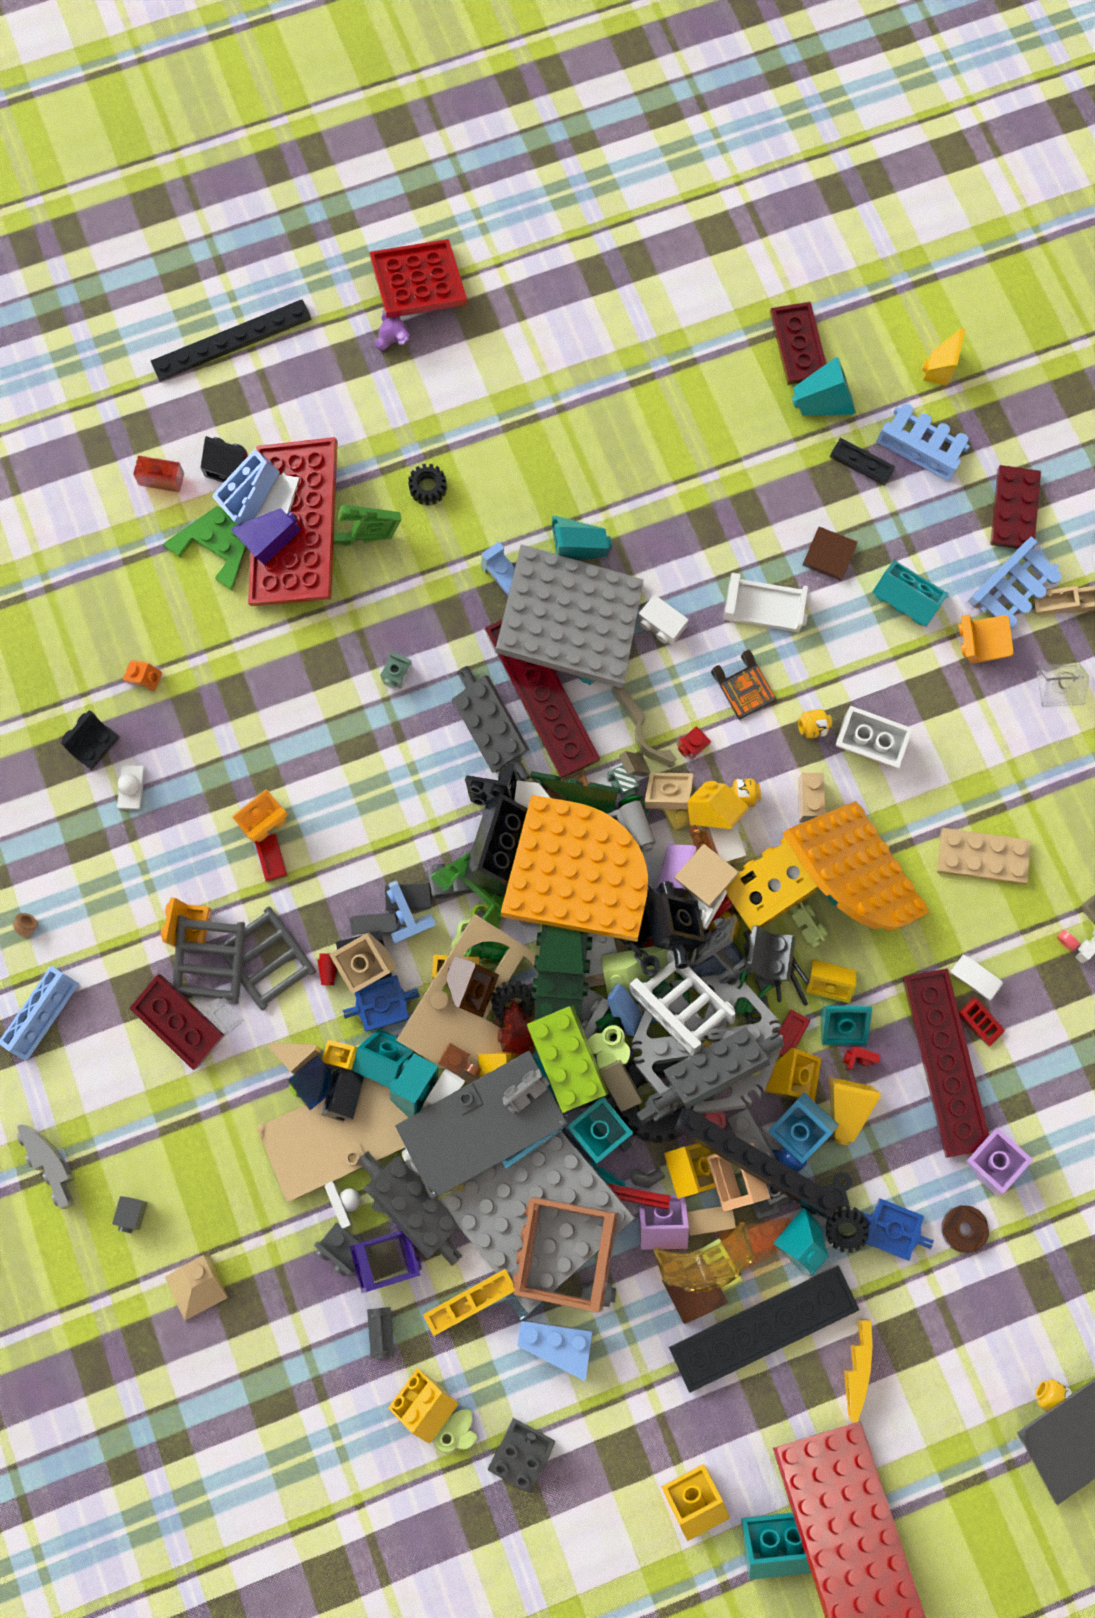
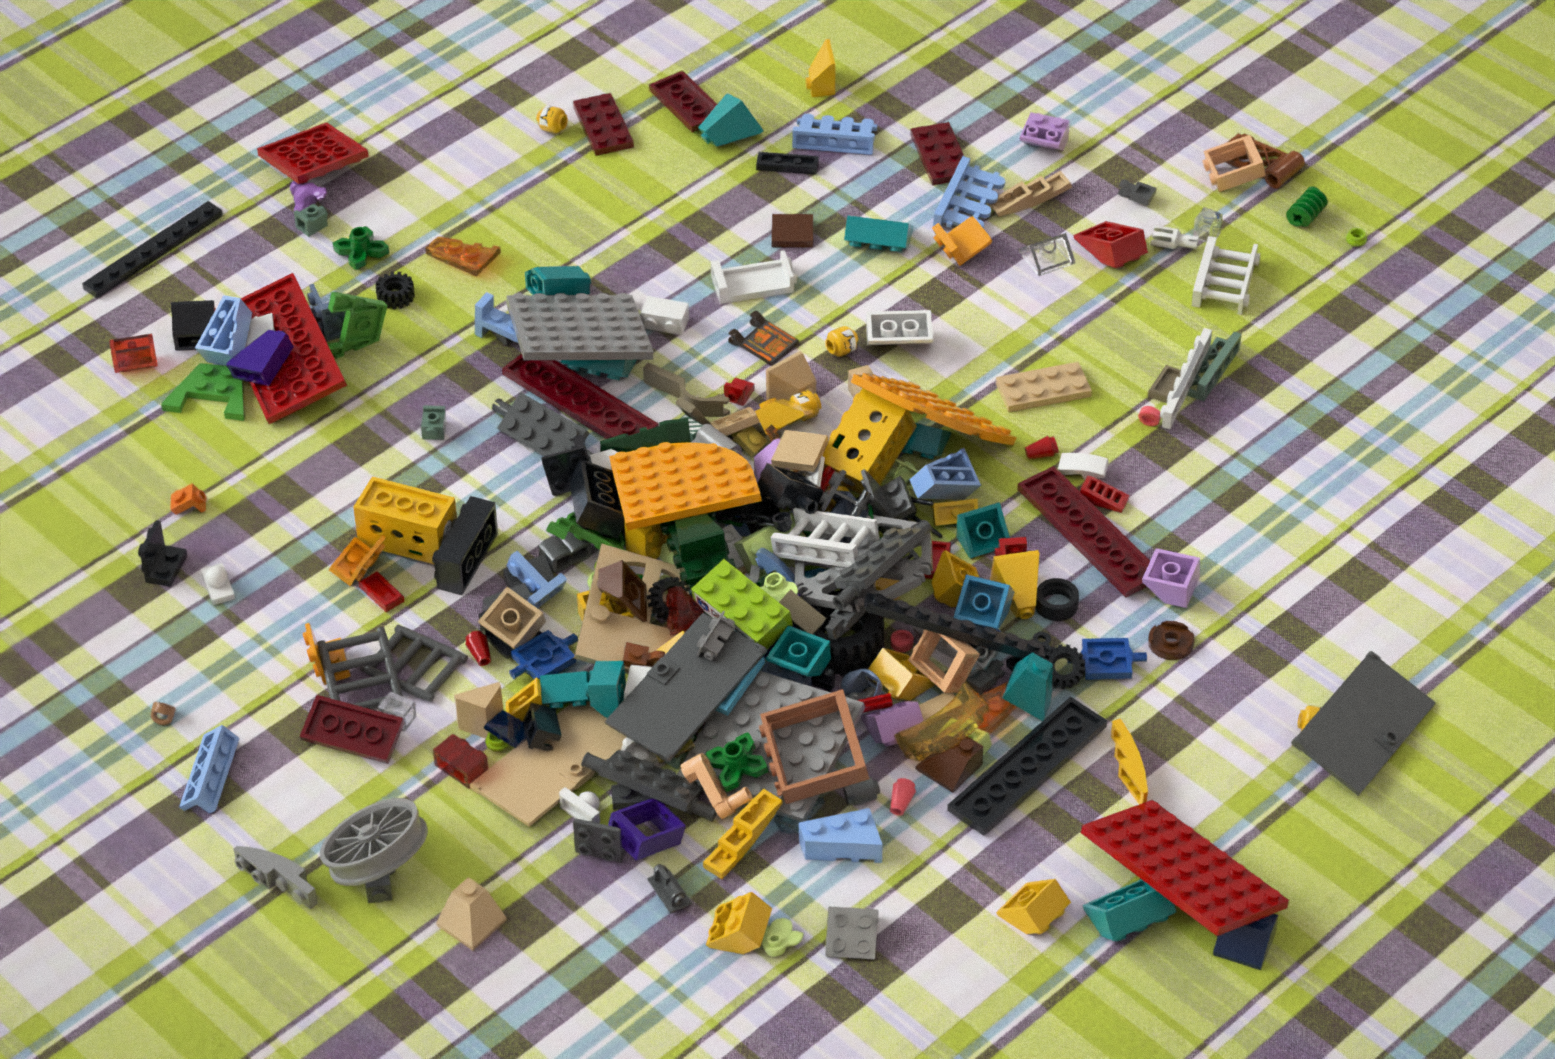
camera: 20 degrees left, 30 degrees down
(134, 1181) = (373, 842): none -> light grey wheel
(258, 1100) = (460, 760): none -> clear red brick
(315, 797) = (406, 515): none -> yellow piece
(342, 496) = (329, 323): none -> sand blue bracket
(360, 844) = (465, 545): none -> black brick
(386, 361) = (311, 219): none -> sand green brick
(417, 415) = (360, 246): none -> green plant
(462, 1241) = (701, 768): none -> light nougat beam
(503, 1237) = (737, 760): none -> green plant
(507, 463) = (462, 256): none -> clear orange wing
(633, 1314) = (902, 794): none -> coral cone
(642, 1162) = (857, 682): none -> sand blue piece
(660, 319) = (552, 119): none -> yellow head
(708, 340) = (603, 124): none -> dark red plate
(744, 760) = (789, 377): none -> tan slope
(836, 951) = (946, 478): none -> light blue wedge
(896, 1136) = (1061, 587): none -> black tyre
(947, 938) = (1042, 448): none -> red cone

